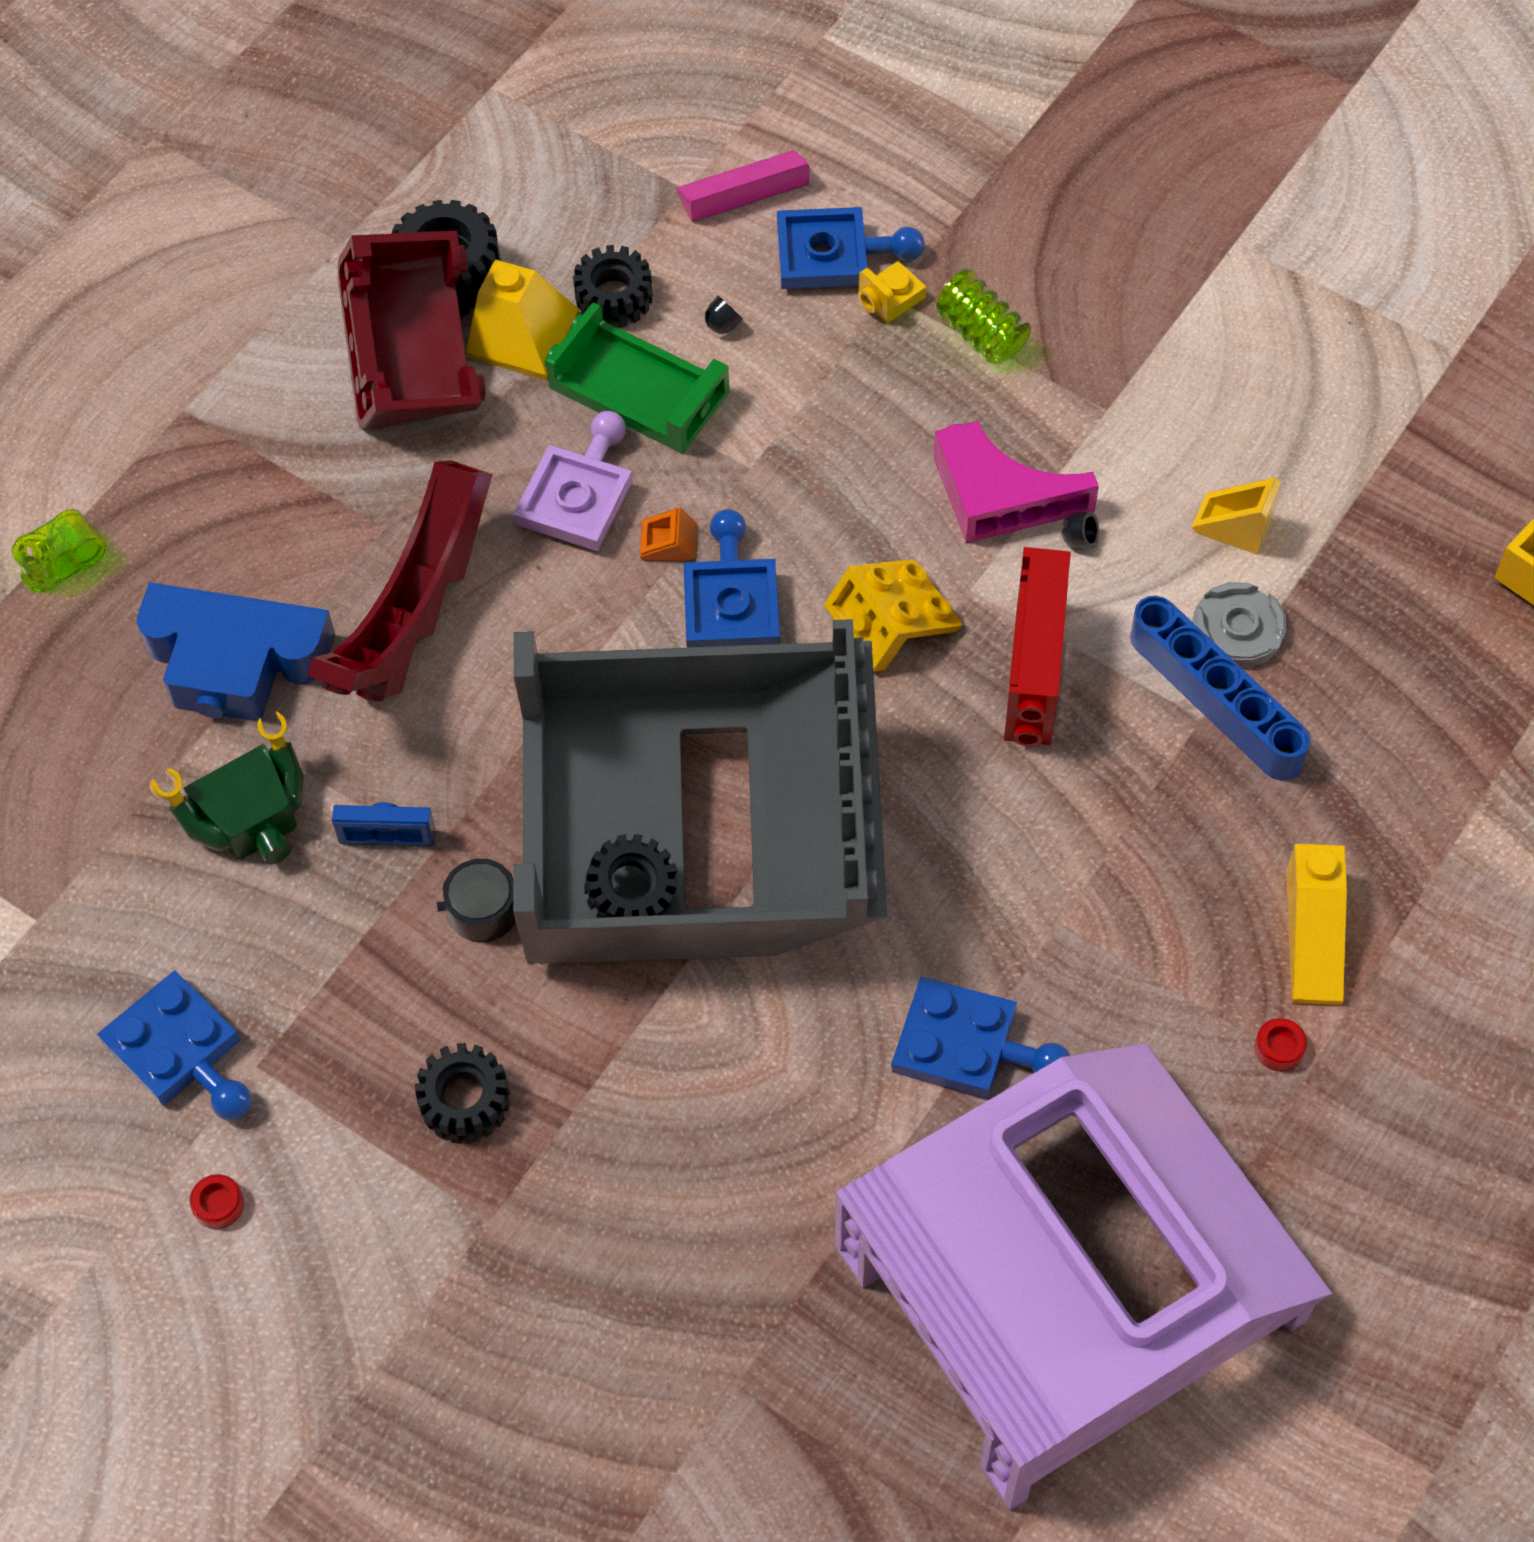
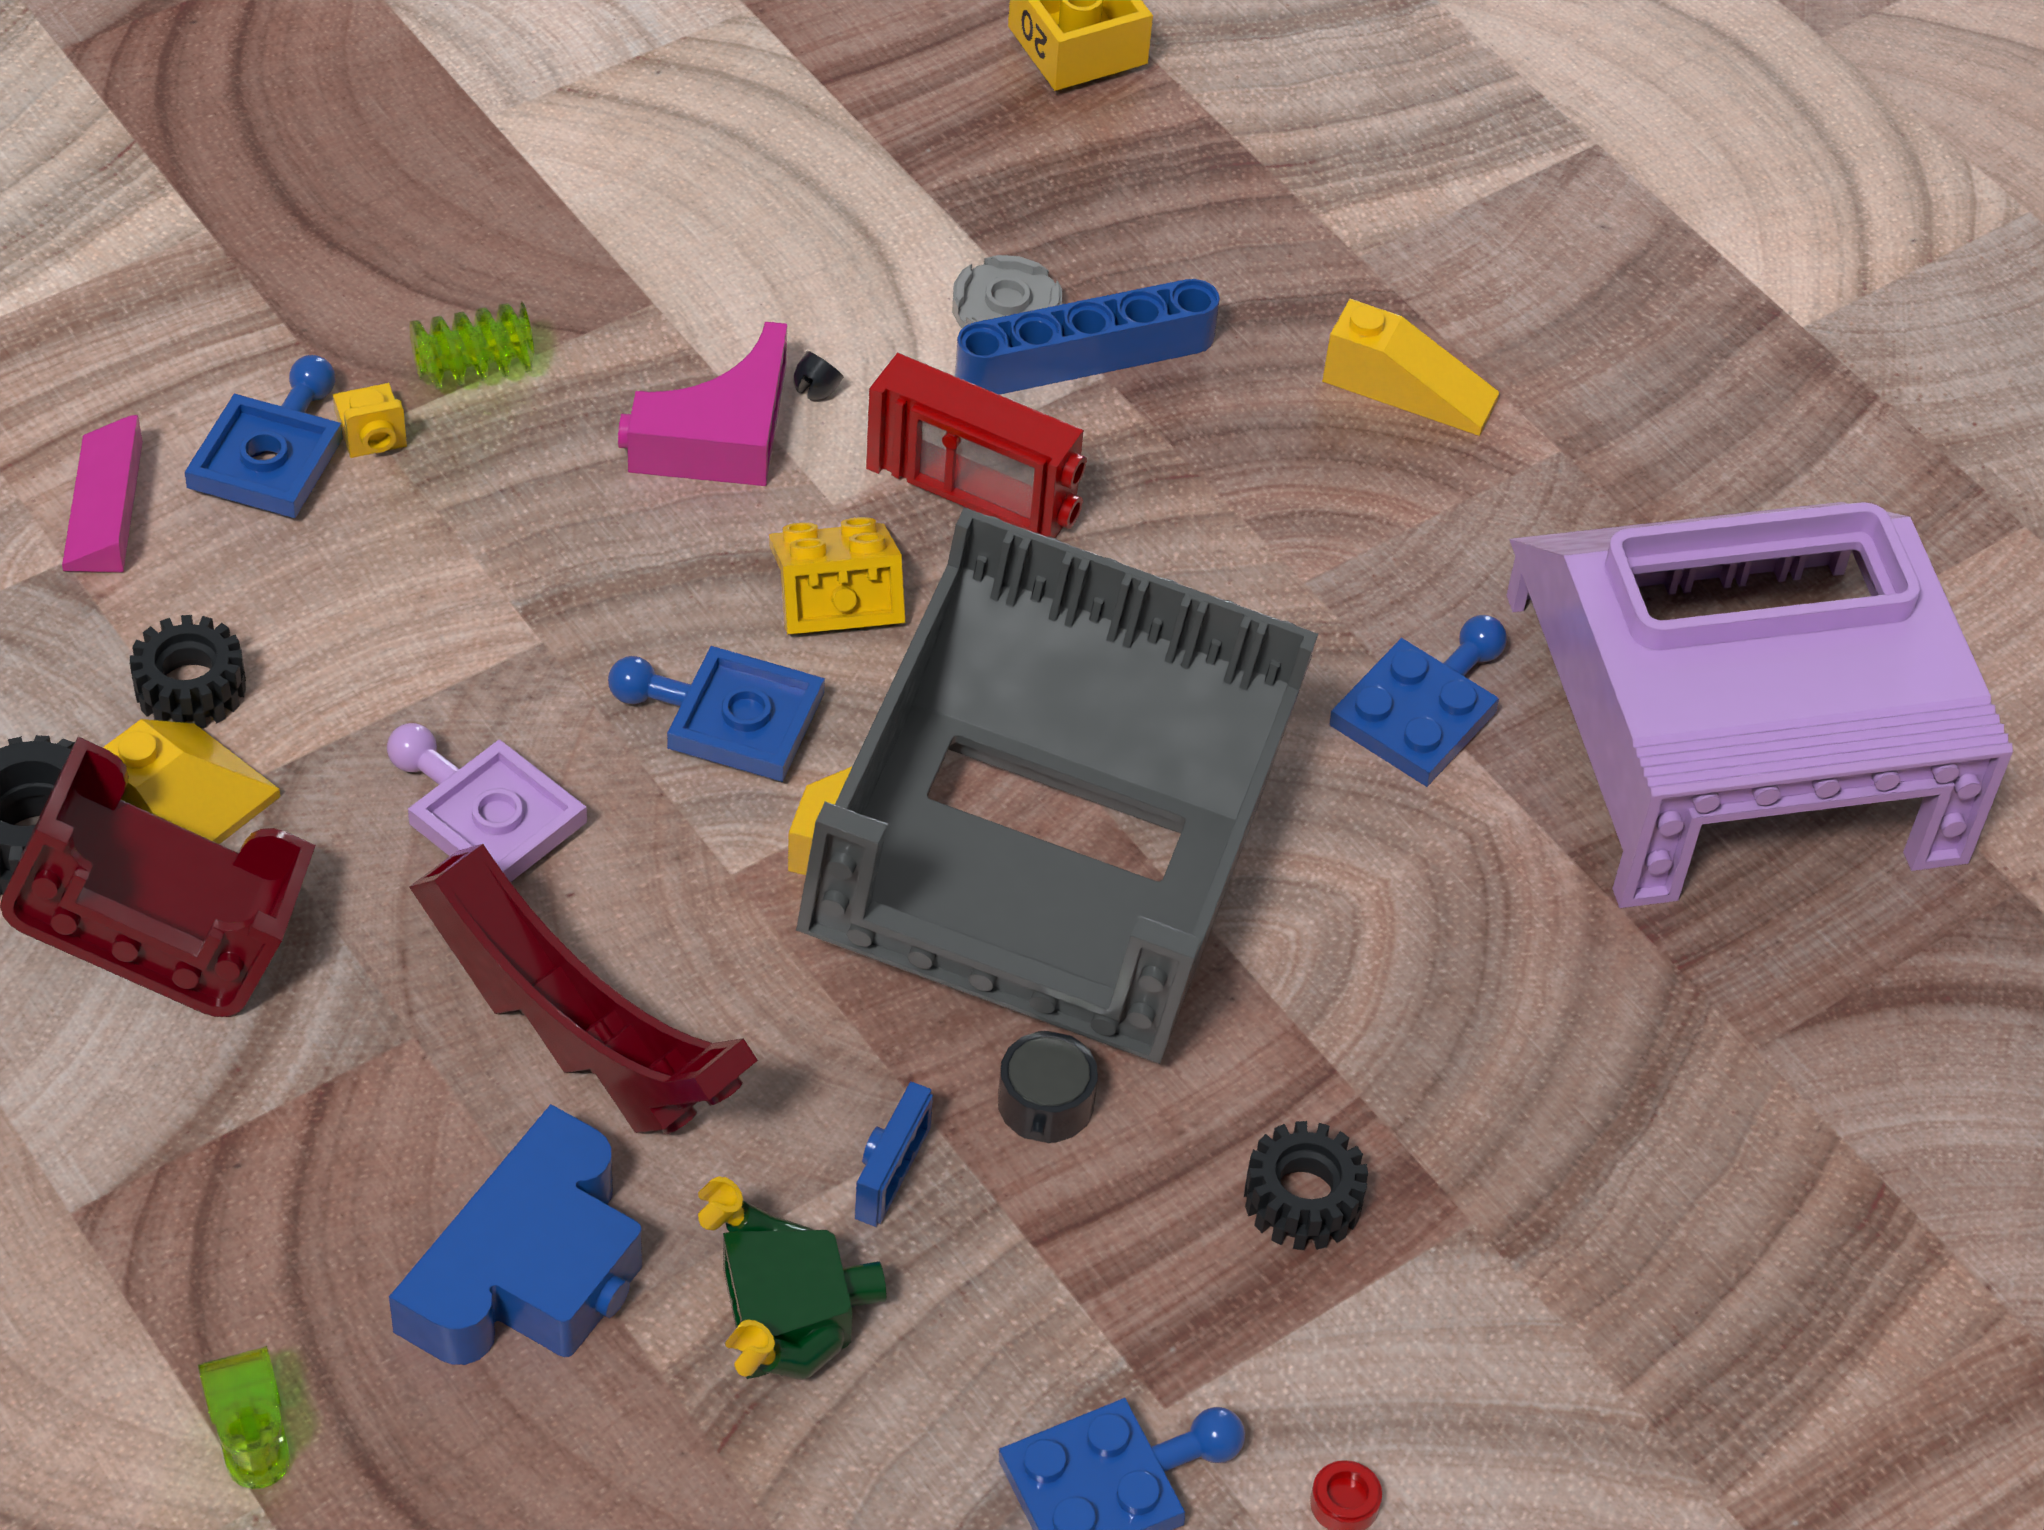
camera: 75 degrees left, 10 degrees down
(636, 380) = (354, 697): green panel -> none
(636, 854) = (1131, 871): black tyre -> none
(669, 537) = (604, 748): orange slope -> none
(721, 317) = (305, 581): black hinge -> none
(1238, 514) = (877, 235): yellow slope -> none
(1280, 1044) = (1528, 457): red tile -> none

